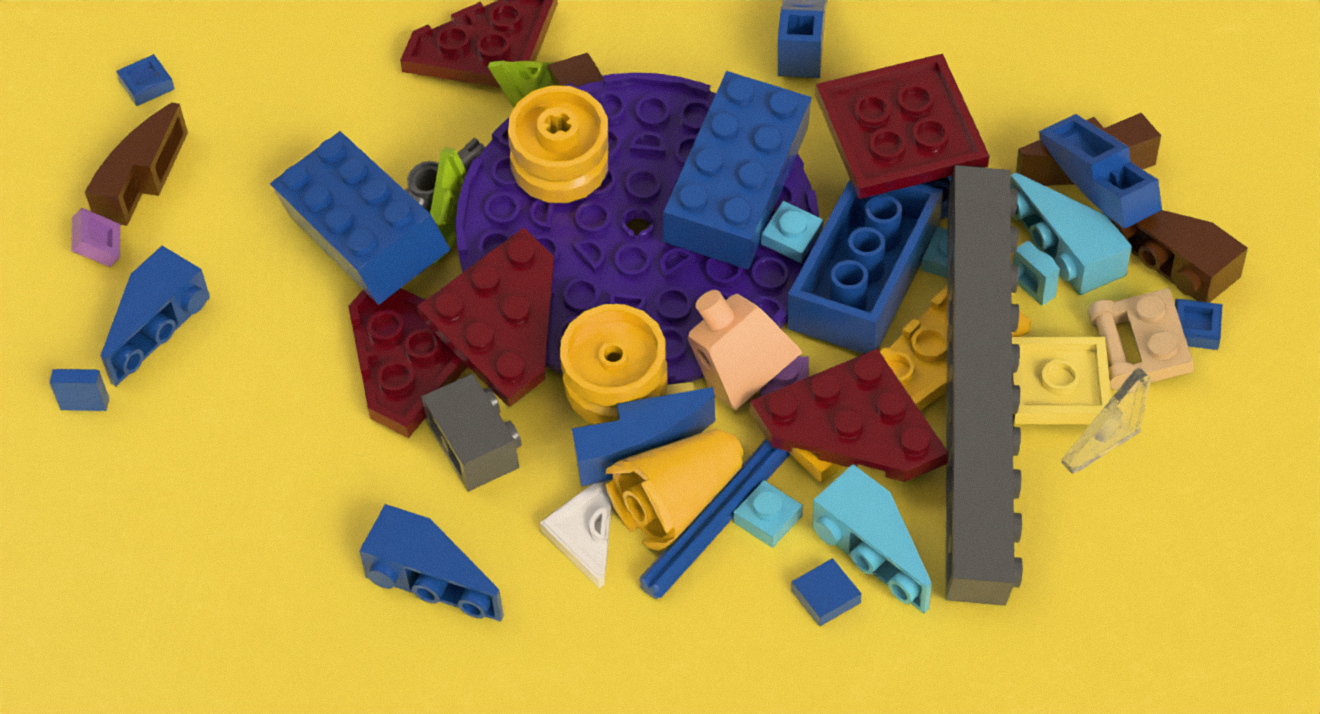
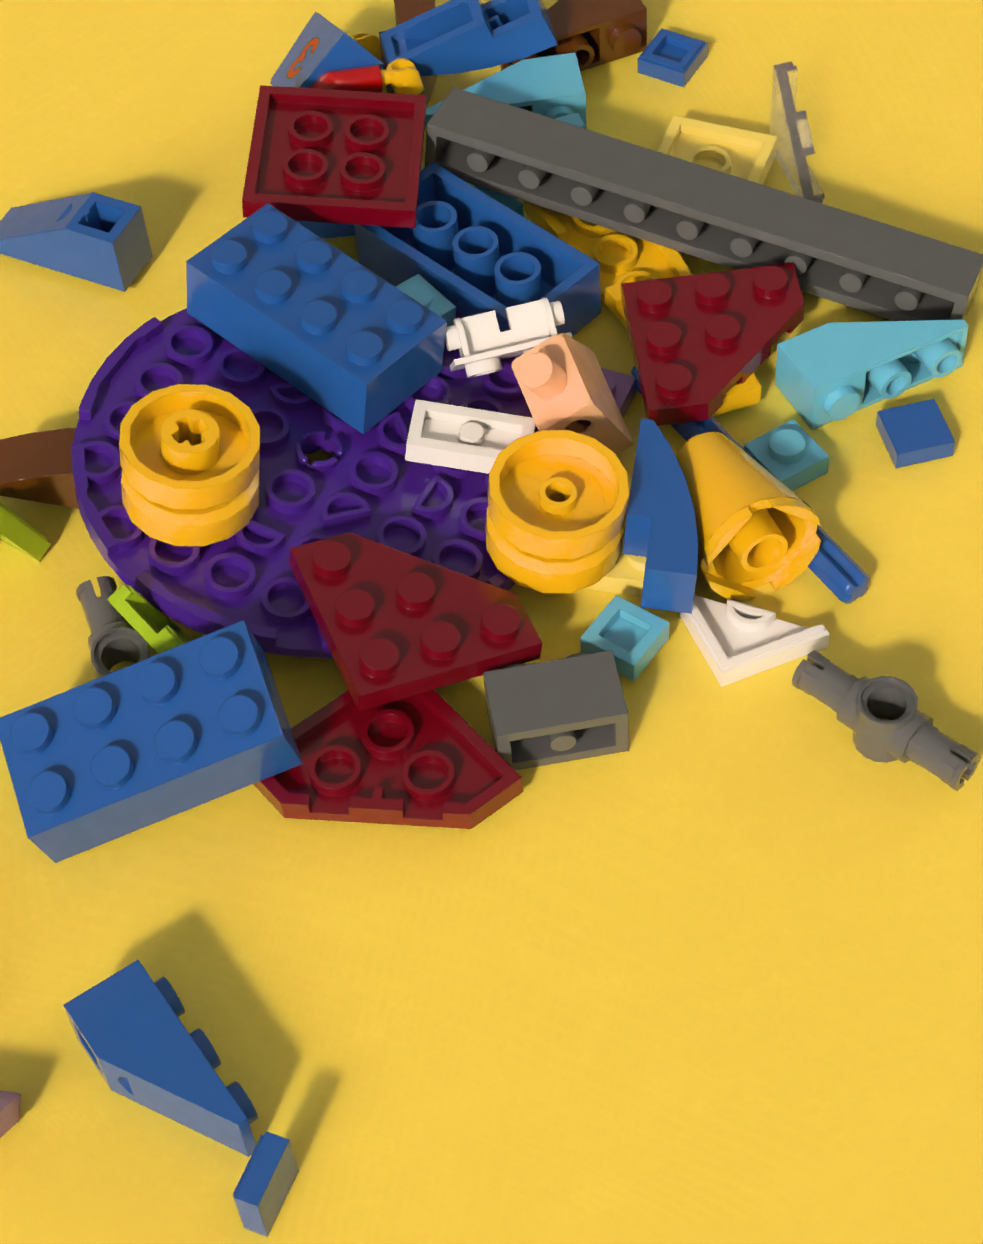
camera: 70 degrees left, 0 degrees up
(421, 559) = (739, 803): blue slope -> none
(515, 647) = (903, 737): none -> dark grey pin
(549, 456) = (629, 632): none -> medium azure plate
(673, 297) = (461, 435): none -> white plate
(782, 302) = (484, 345): none -> white hinge
(1033, 101) = (334, 61): none -> torso
(1155, 332) = (678, 82): tan plate -> none

